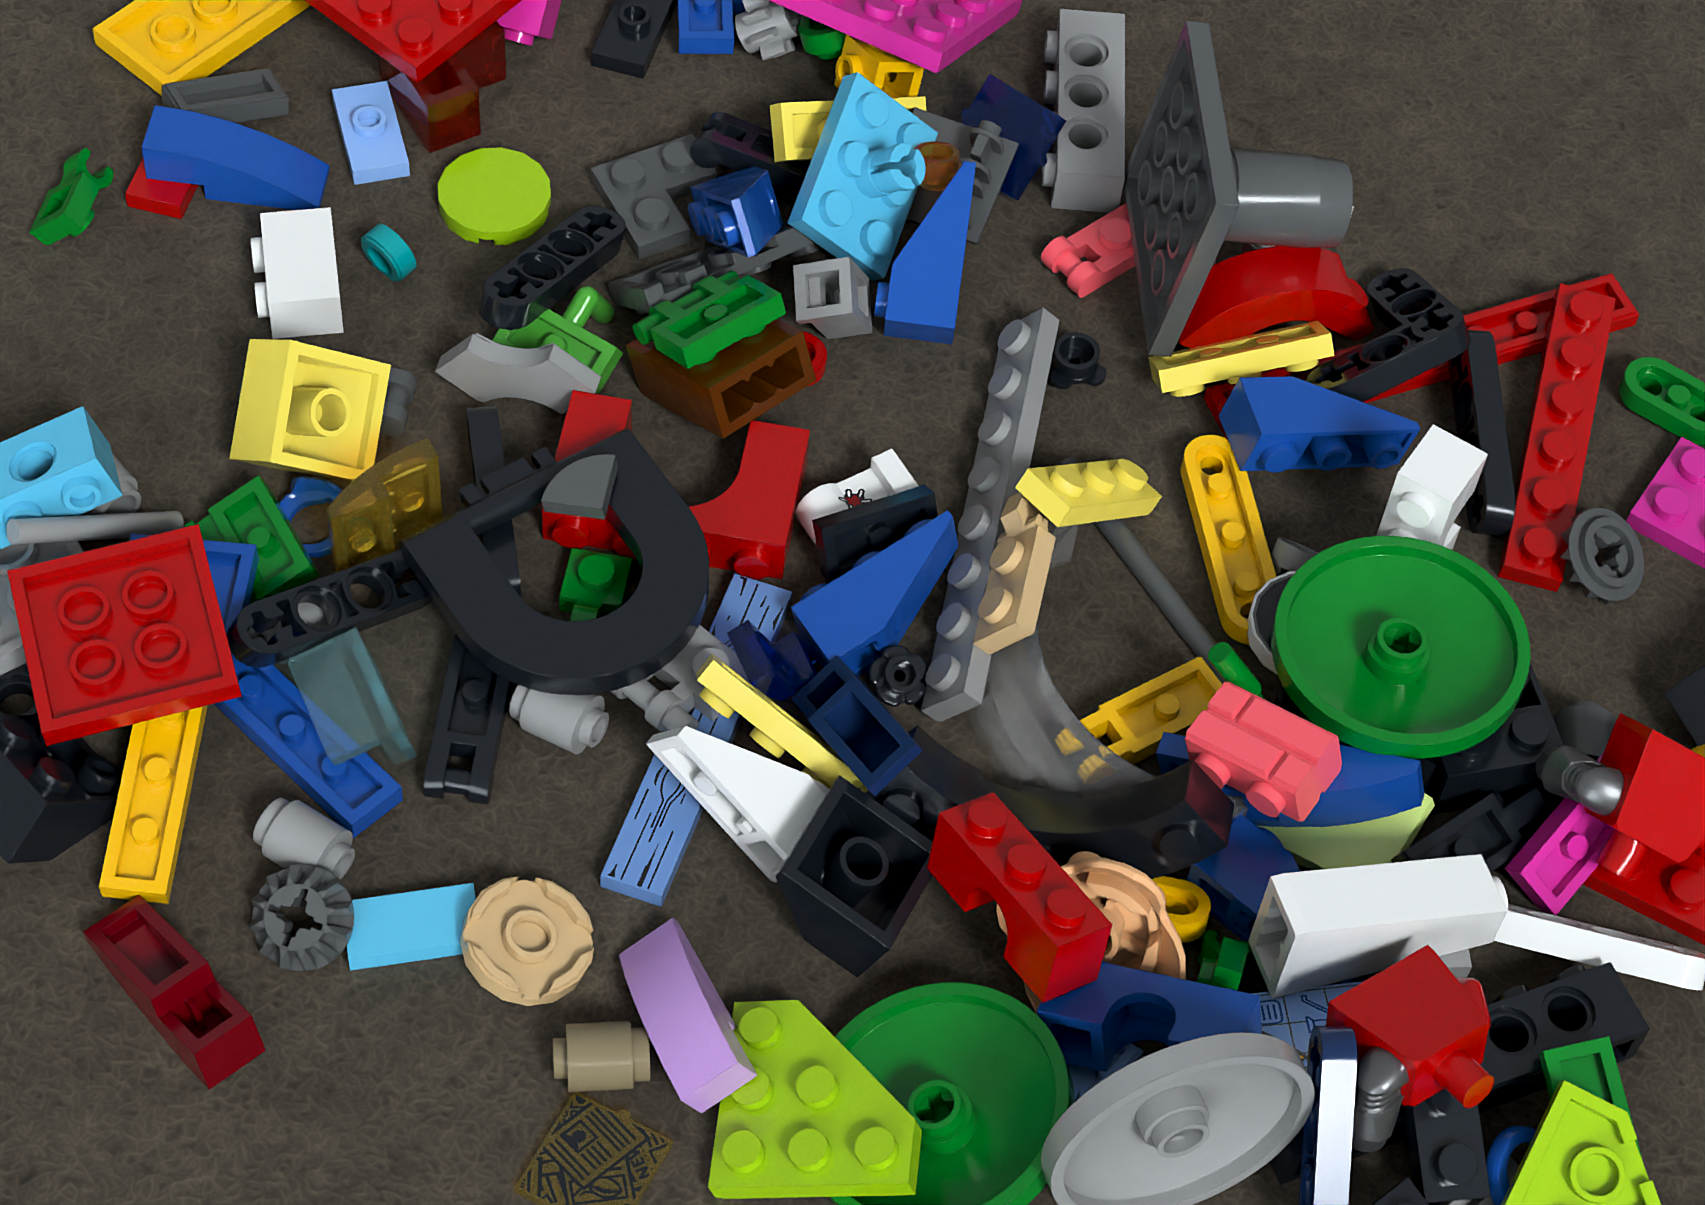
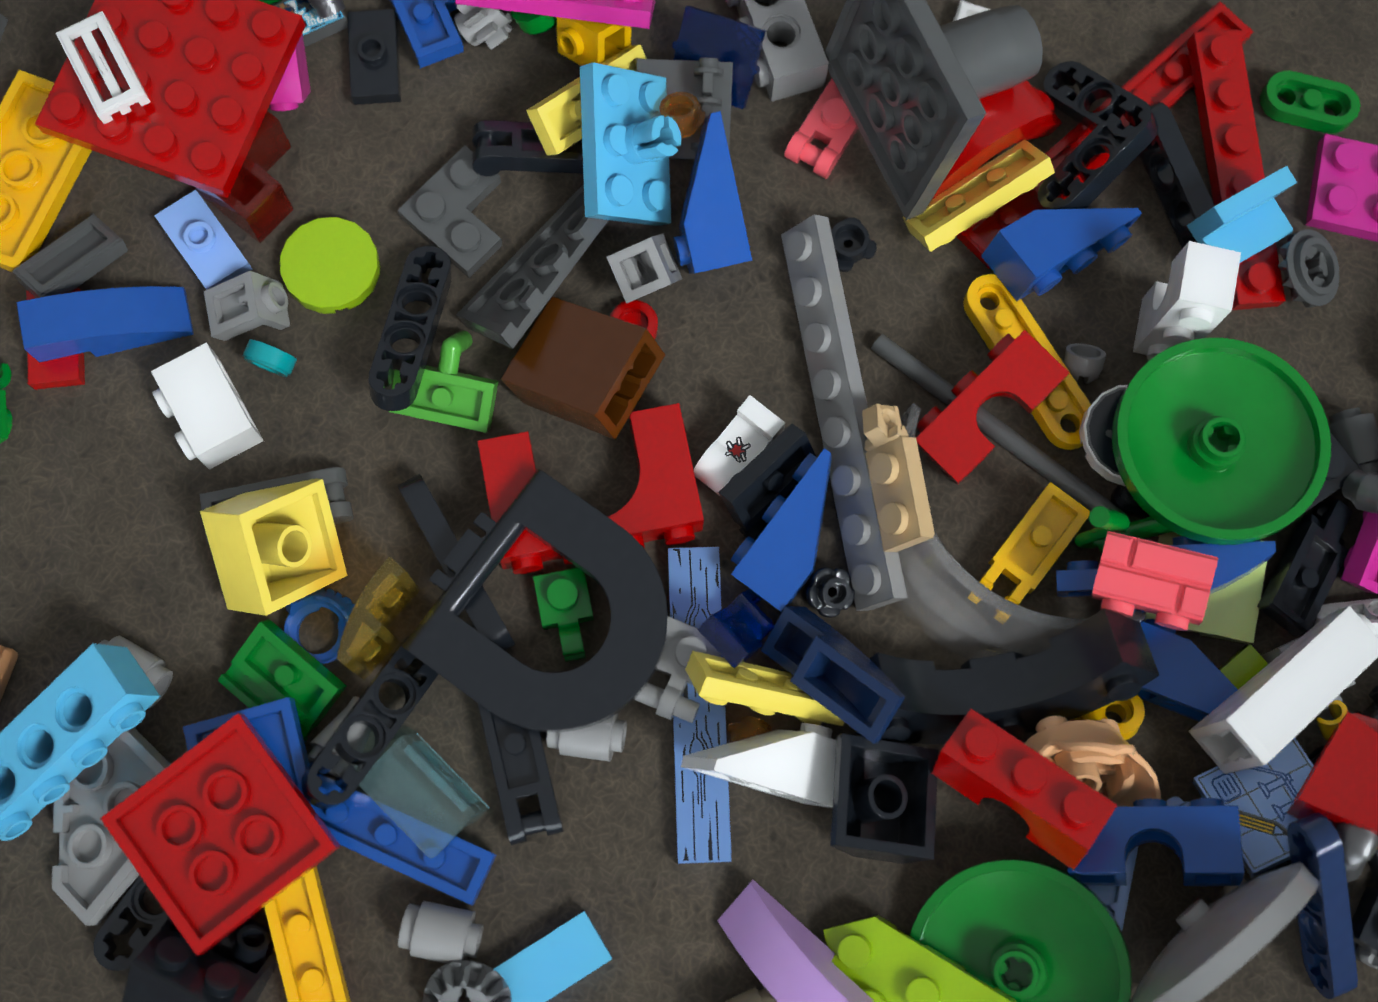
camera: 20 degrees left, 20 degrees up
(91, 527) = (150, 726): light grey bar -> none
(387, 195) = (245, 305): none -> light grey bracket
(500, 371) = (438, 435): light grey tile -> none
(527, 941) = (646, 944): tan tile -> none
(582, 487) = (531, 546): dark grey tile -> none
(710, 318) = (565, 342): green plate -> none
(736, 211) = (539, 219): blue slope -> none
(1089, 491) = (916, 376): light yellow plate -> none
(1198, 524) = (1018, 371): none -> red arch
(1222, 963) = (1178, 764): green plate -> none
(1537, 468) = (1247, 219): none -> medium azure panel

